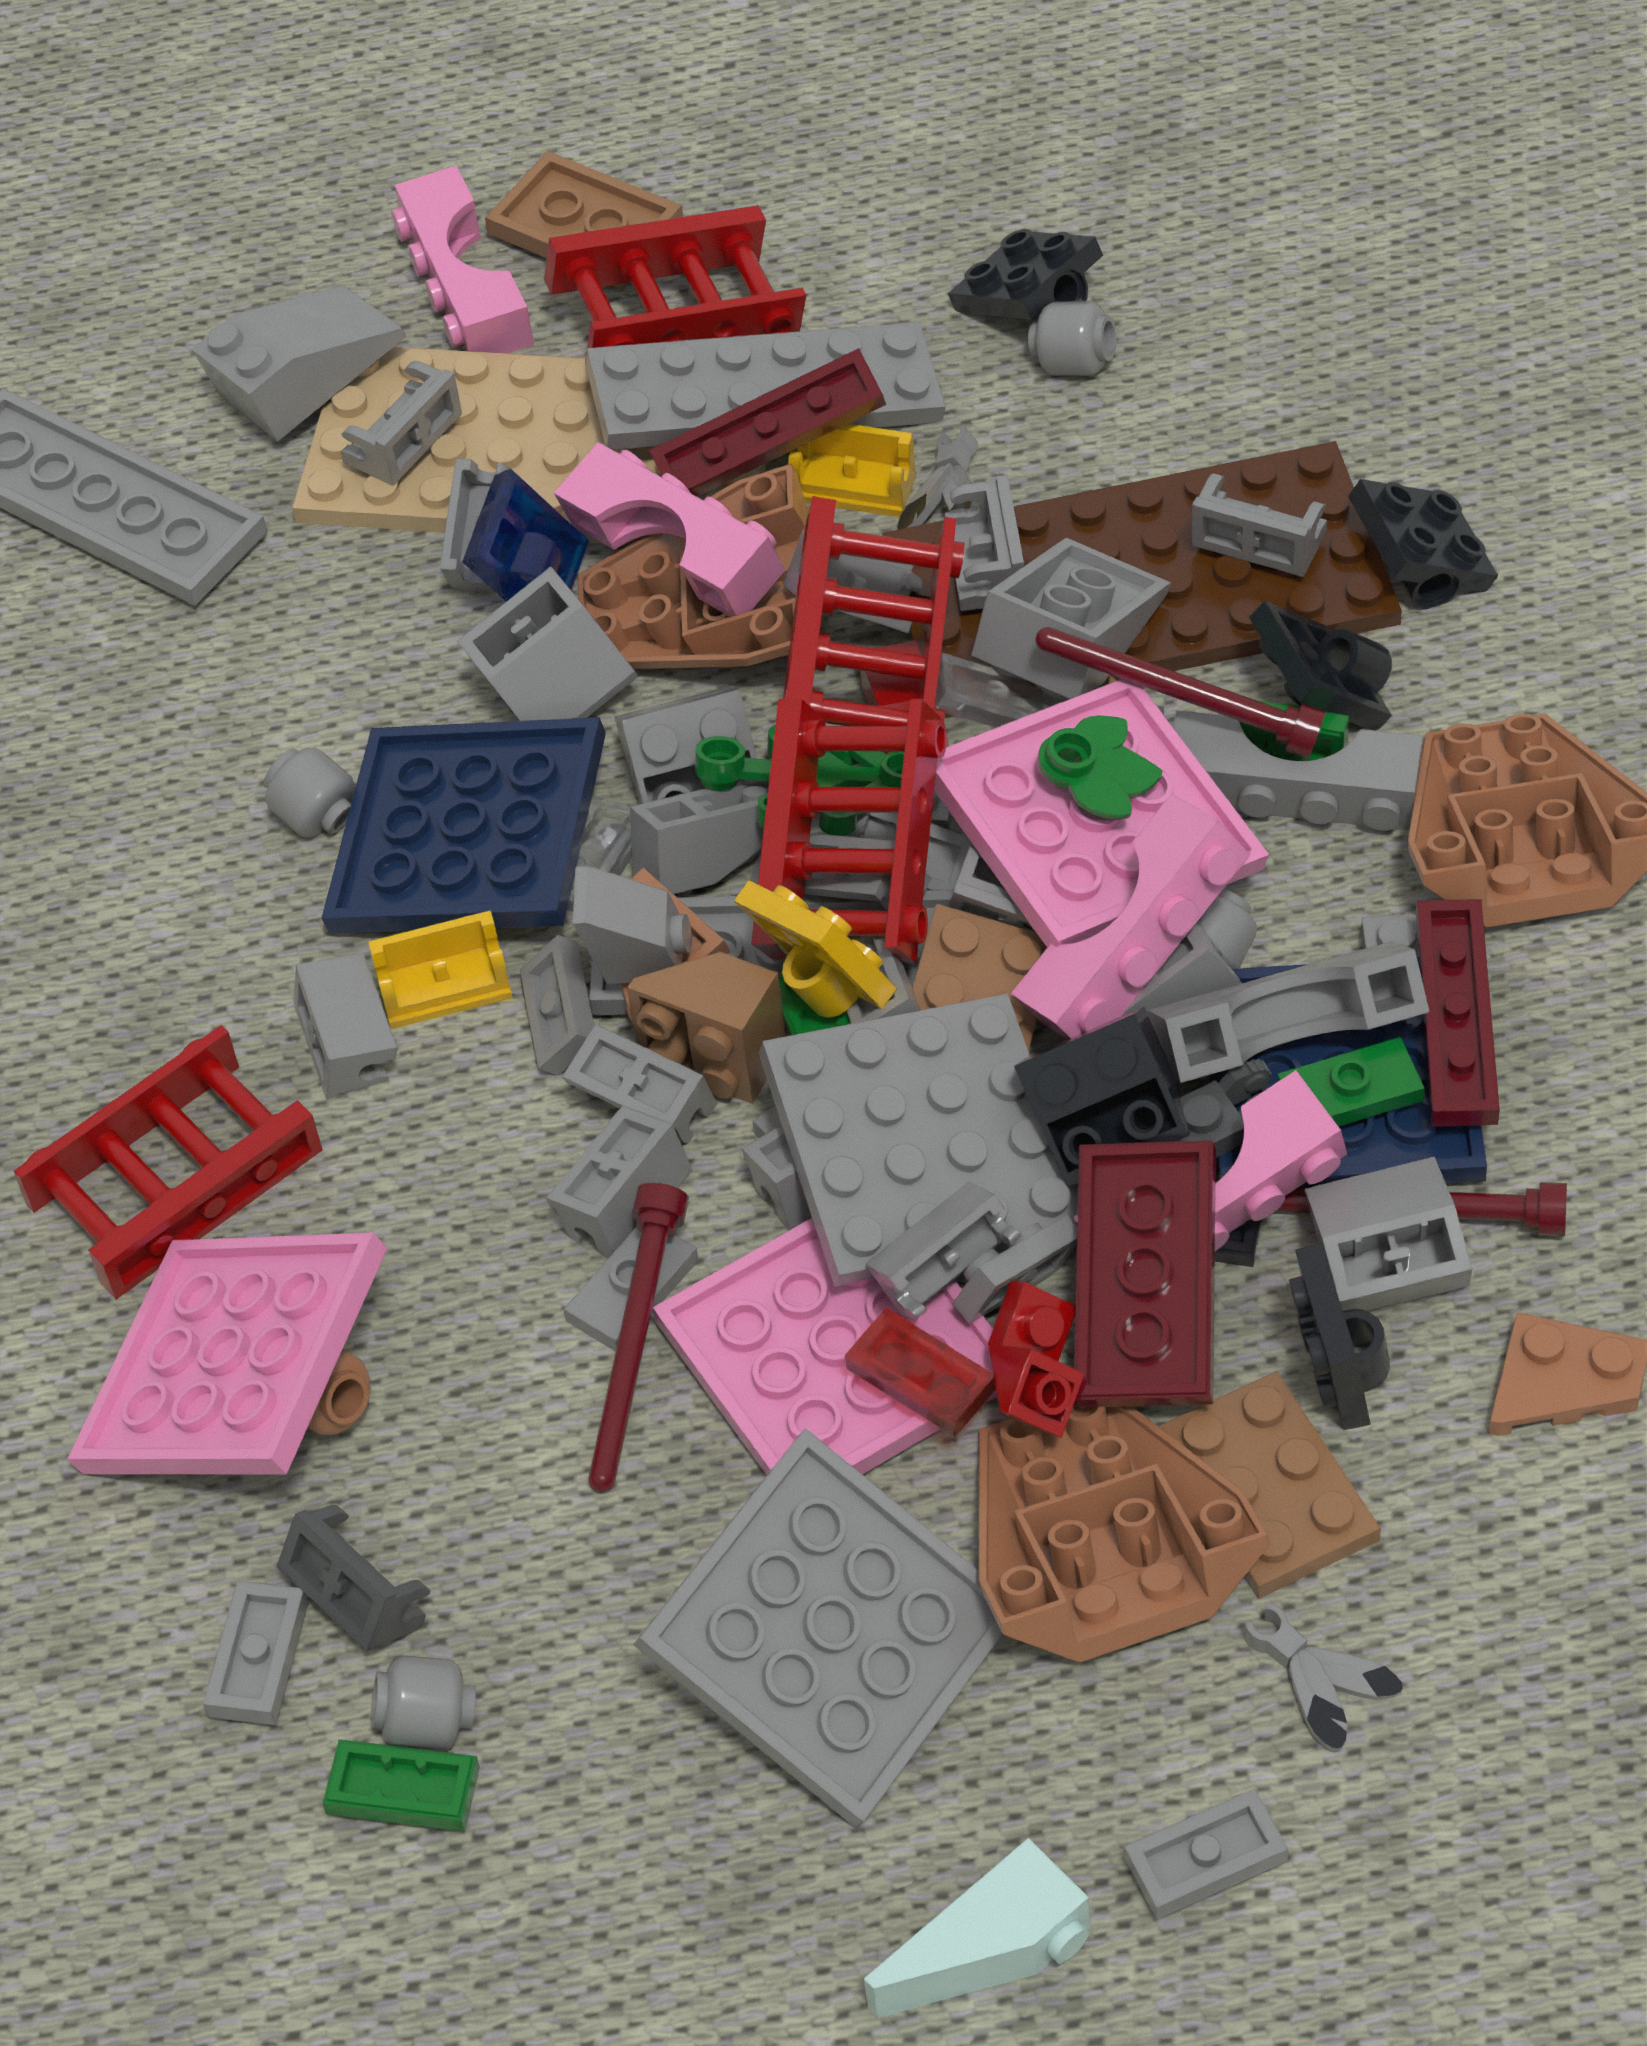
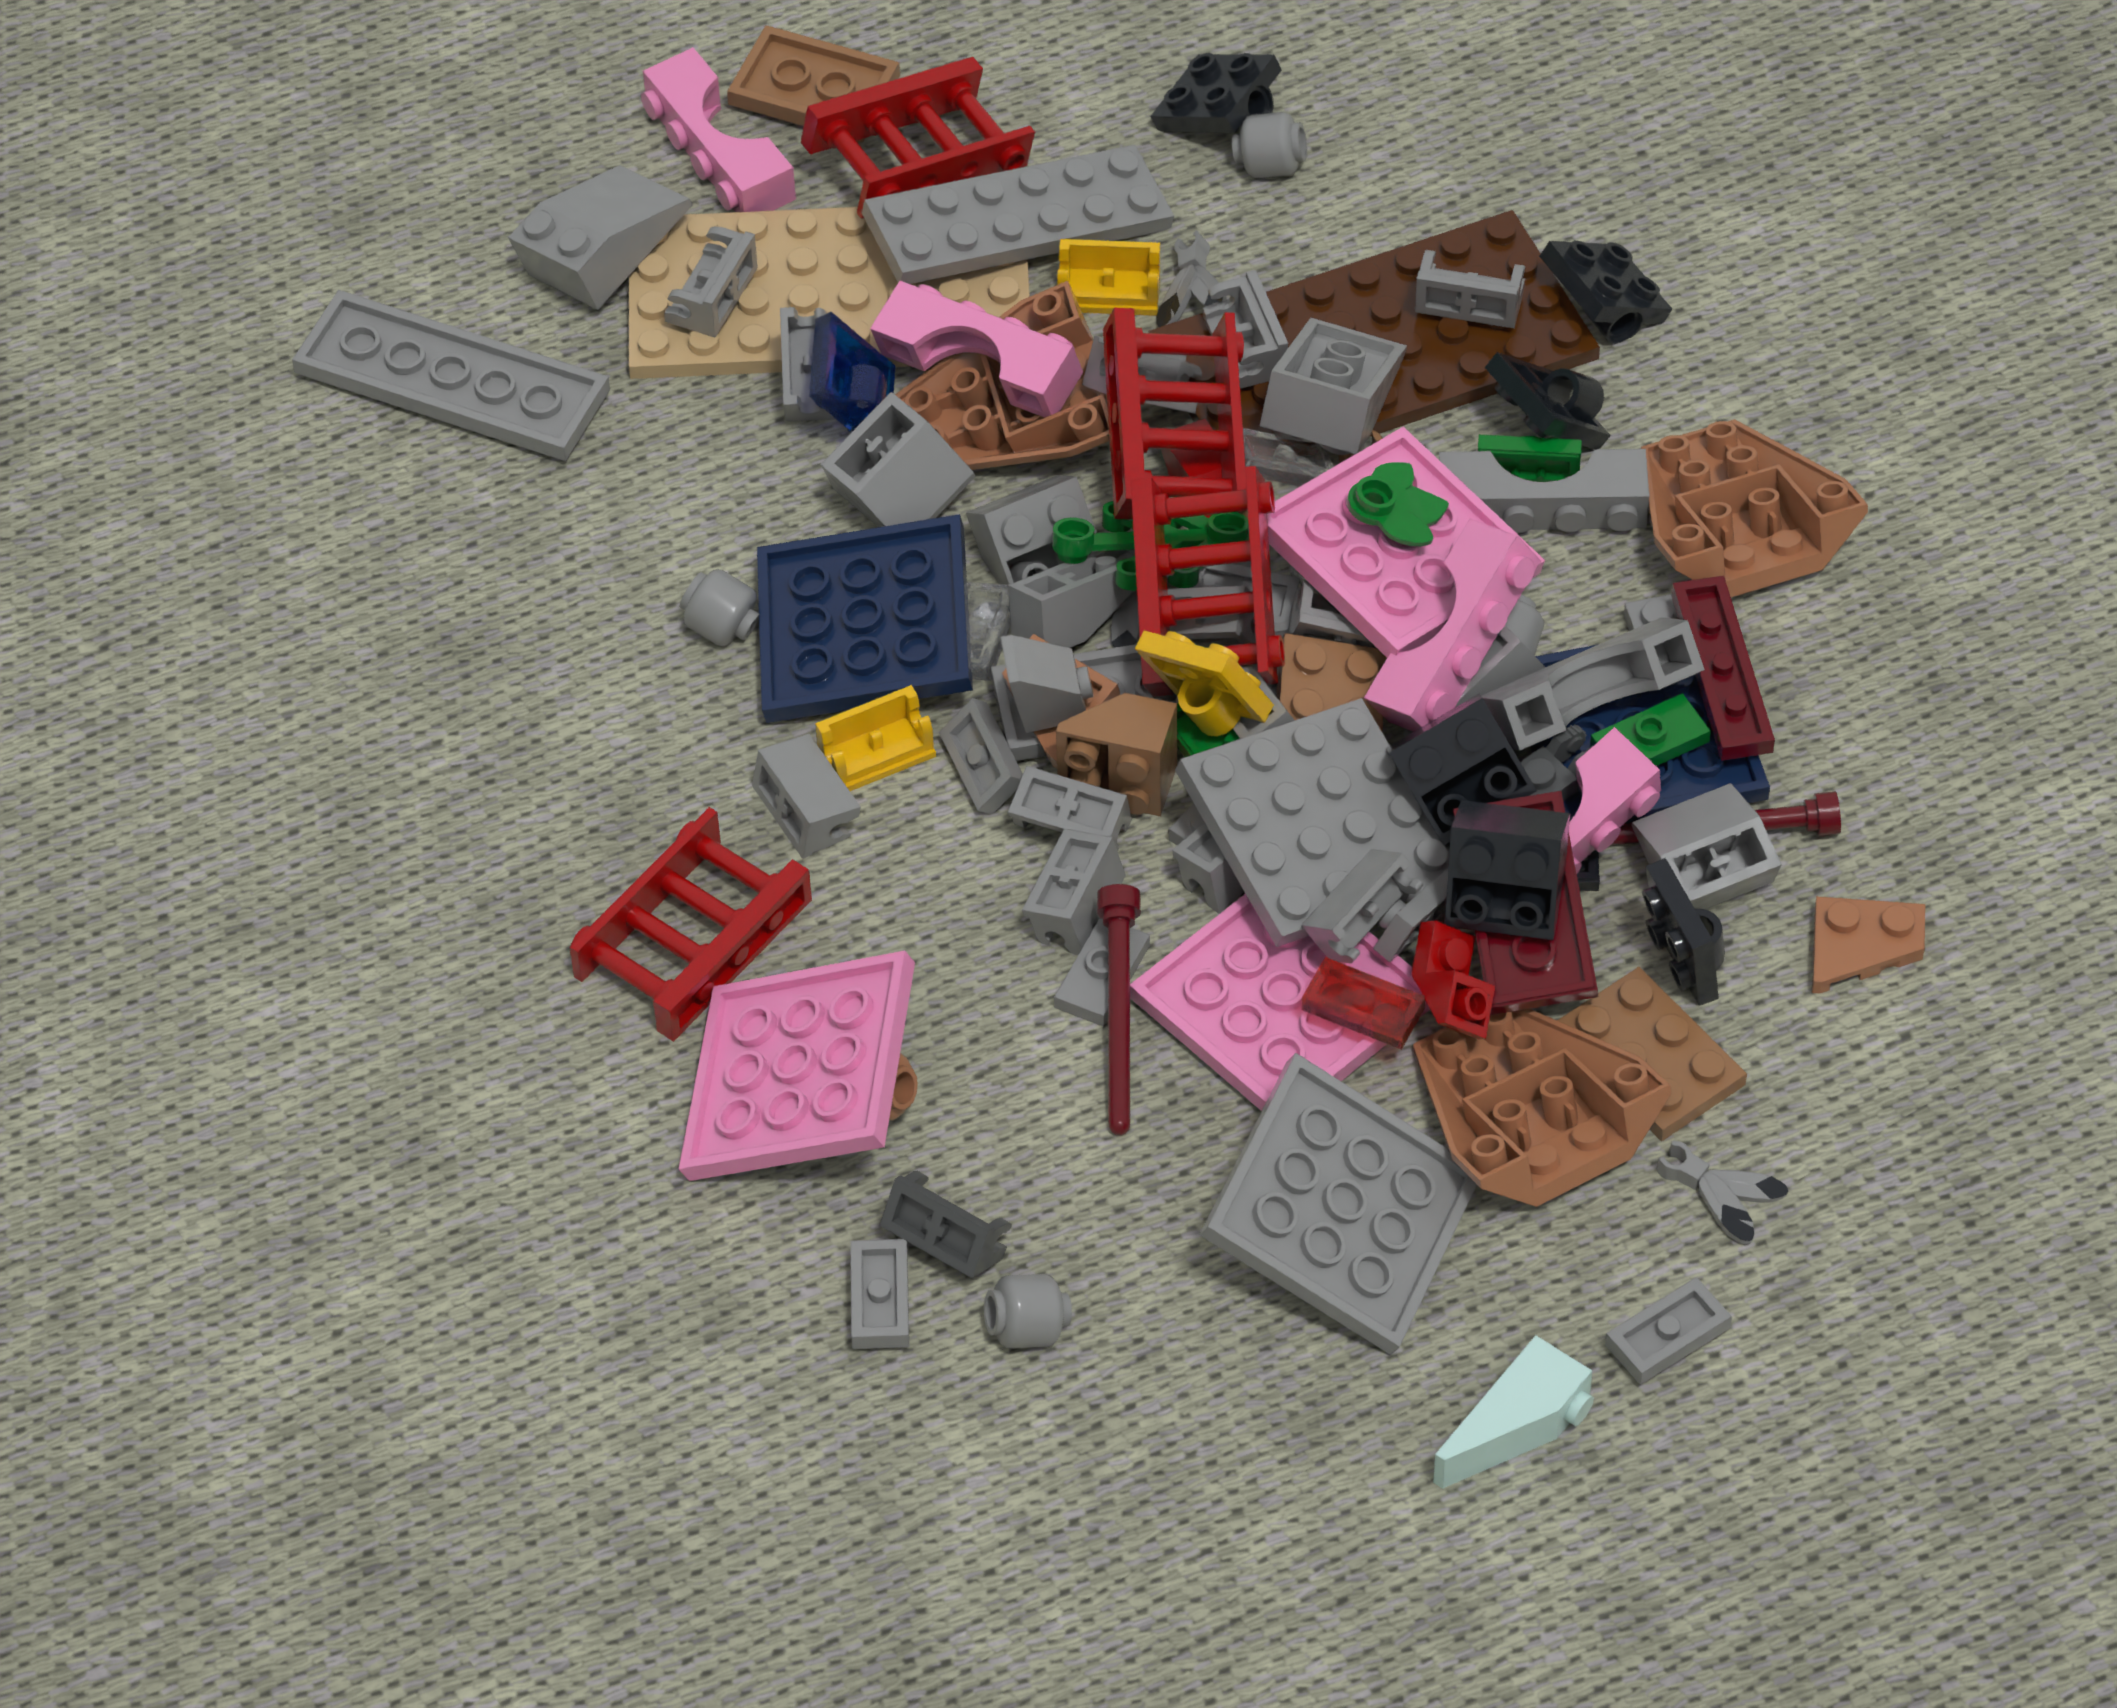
camera: 15 degrees left, 0 degrees up
(401, 1785) = (1026, 1375): green plate -> none
(771, 424) = (1041, 248): dark red plate -> none
(1121, 1229) = (1506, 869): none -> black slope
(1293, 727) = (1542, 454): dark red piece -> none

